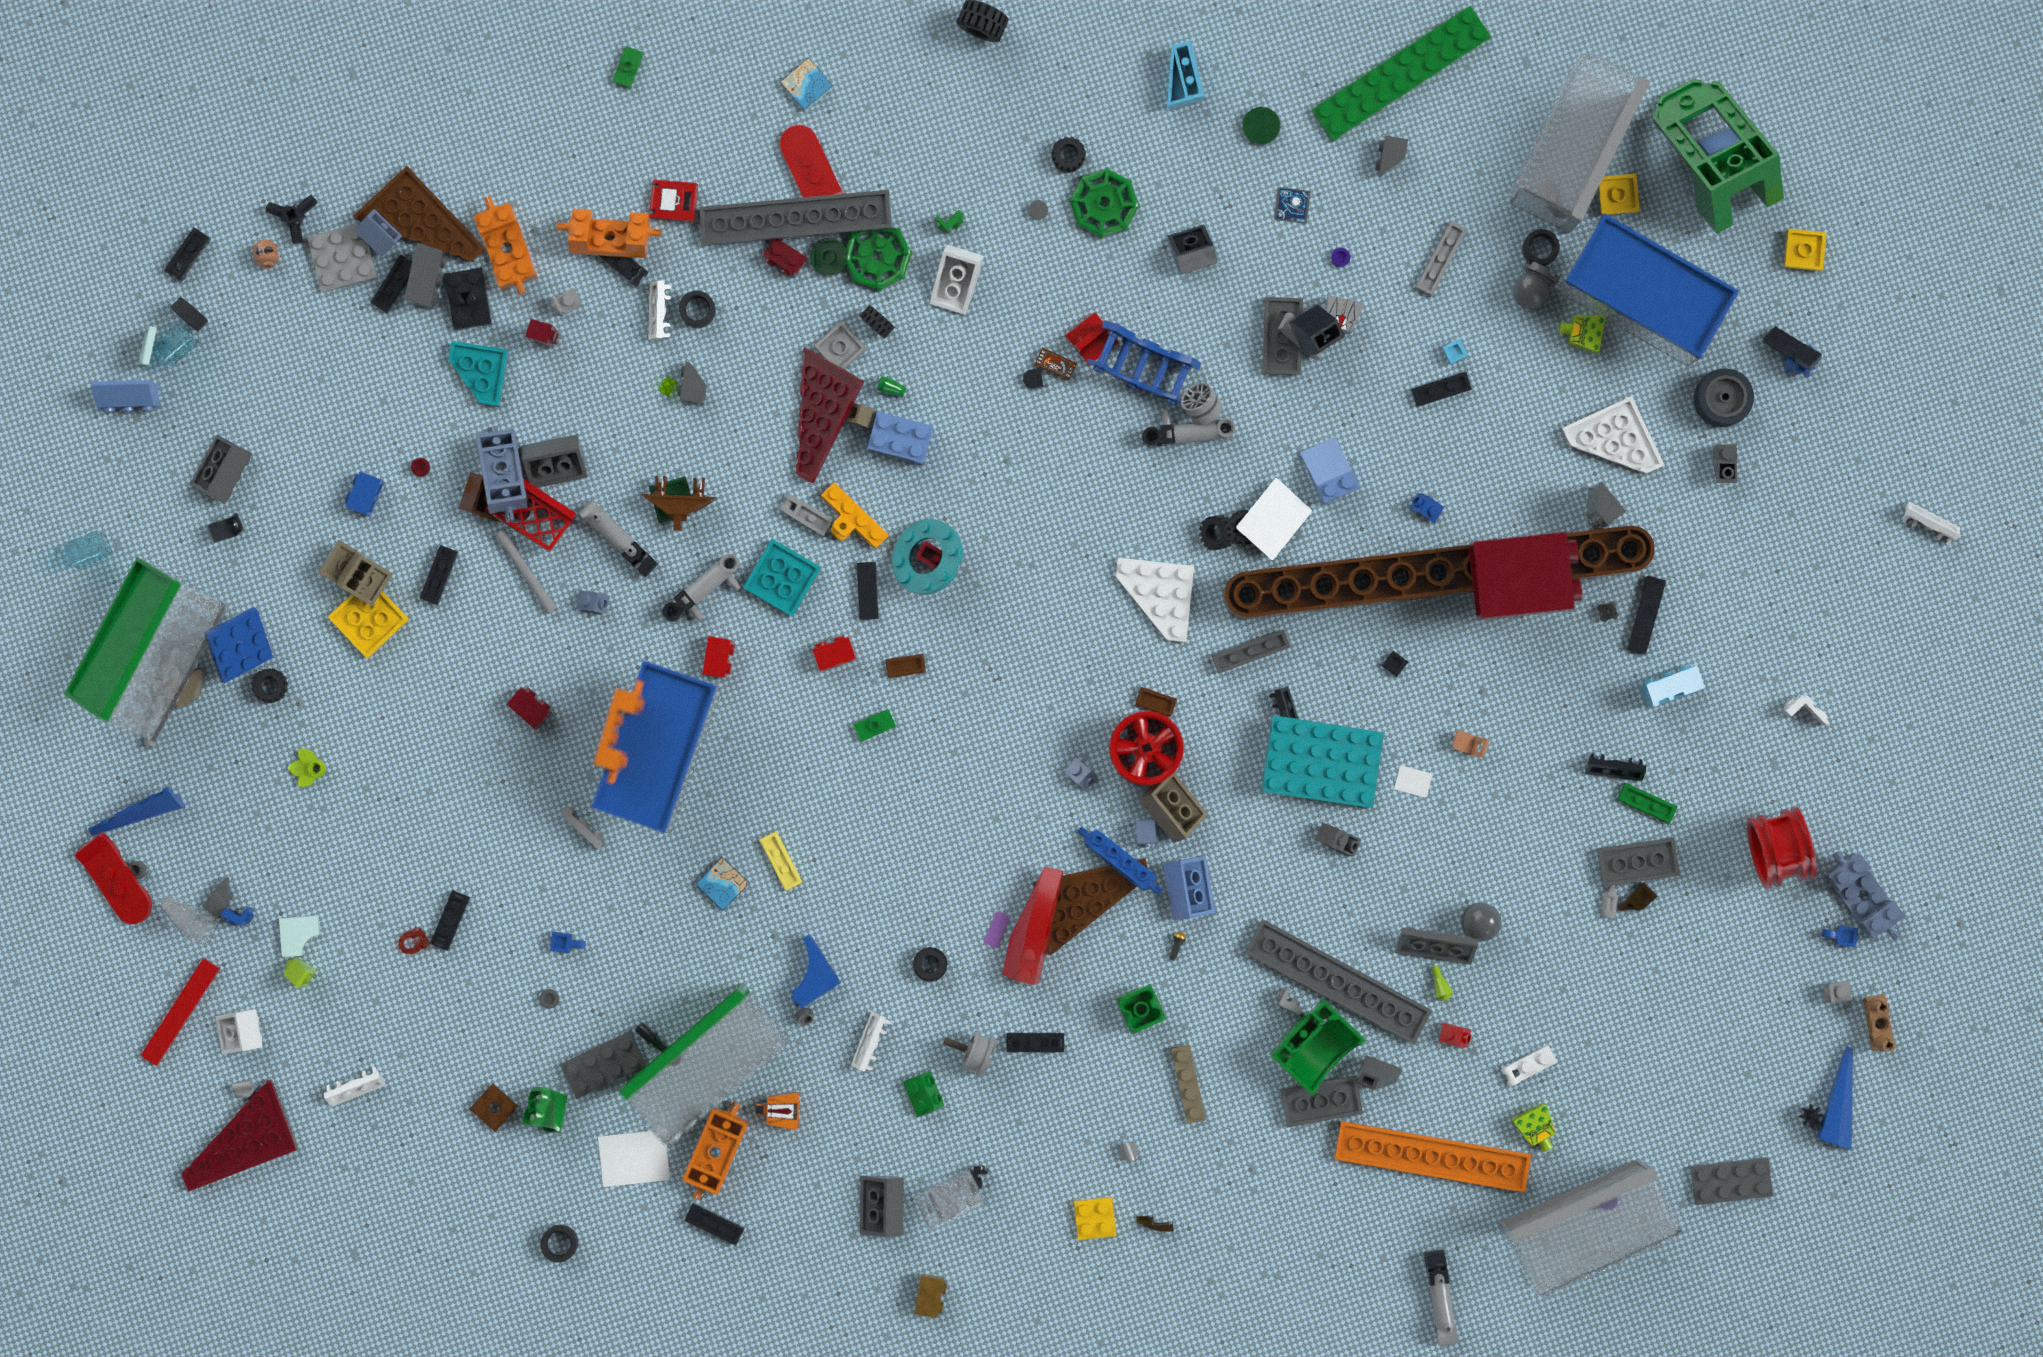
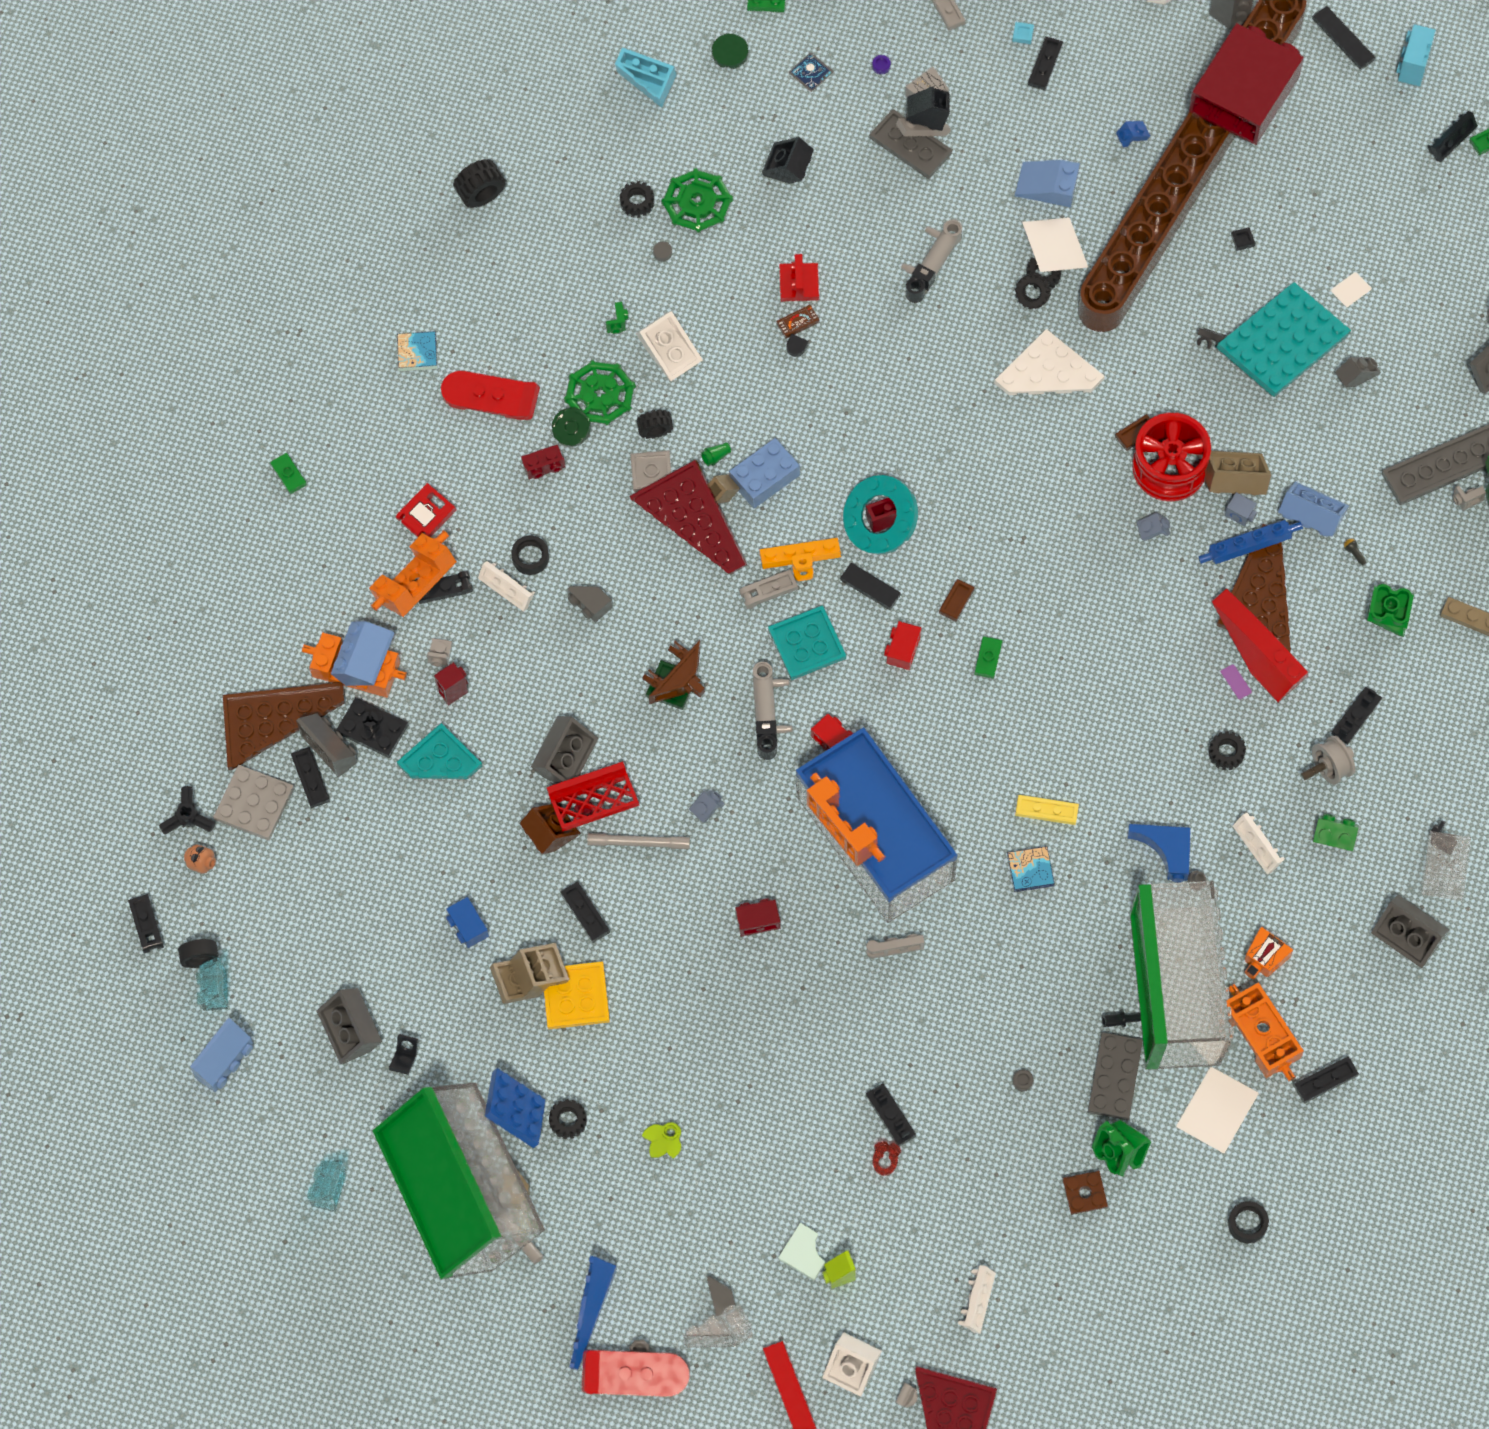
camera: 50 degrees left, 20 degrees down
(147, 346) = (197, 1007): light aqua tile -> none
(235, 918) = (749, 1293): blue bracket -> none
(377, 233) = (259, 754): sand blue brick -> none
(420, 467) = (481, 863): dark red plate -> none
(503, 489) = (559, 796): sand blue brick -> none
(512, 248) = (362, 654): none -> medium blue slope
(563, 942) = (982, 1032): blue plate -> none
(618, 538) = (689, 744): light grey piece -> none
(667, 386) = (574, 624): clear neon green piece -> none
(795, 217) = (518, 428): dark grey plate -> none
(1147, 348) = (818, 248): blue fence -> none
(1201, 403) = (918, 231): light grey wheel -> none
(1250, 651) = (1150, 334): dark grey plate -> none
(1468, 743) = (1351, 227): nougat bracket -> none
(1611, 606) = (1320, 57): clear smoke plate -> none

